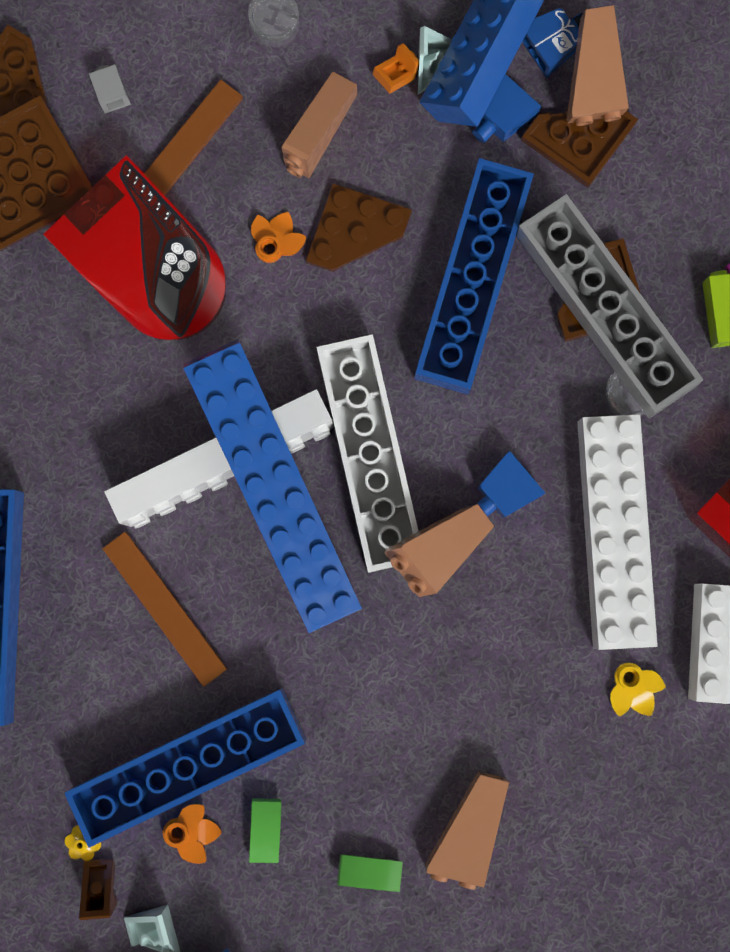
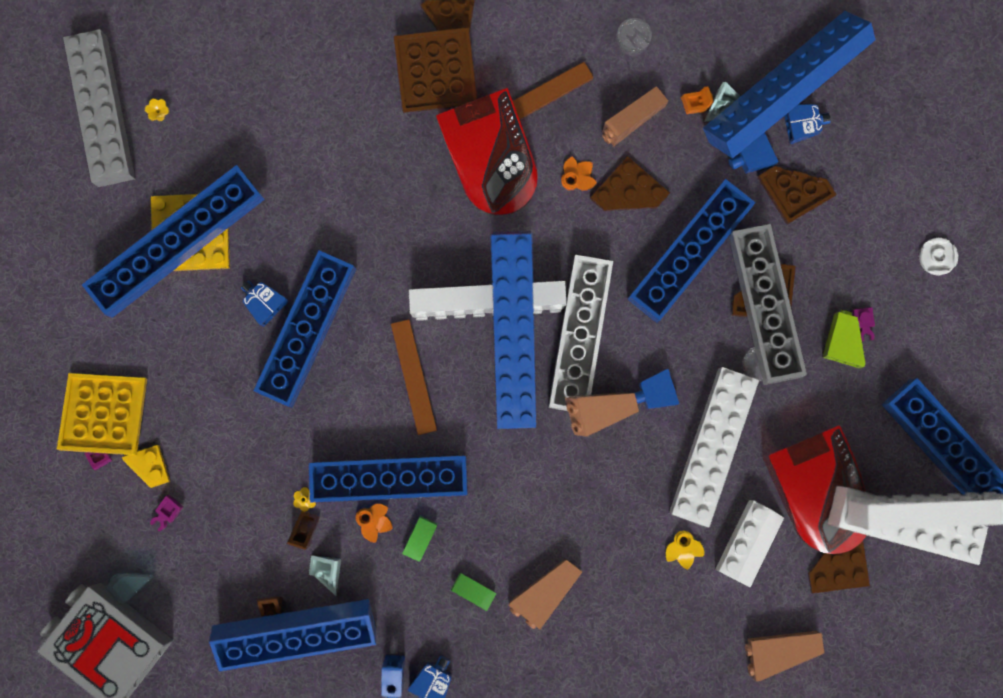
camera: 20 degrees right, 0 degrees up
(109, 88) = (512, 39): light grey brick -> none
(598, 72) = (823, 154): nougat slope -> none

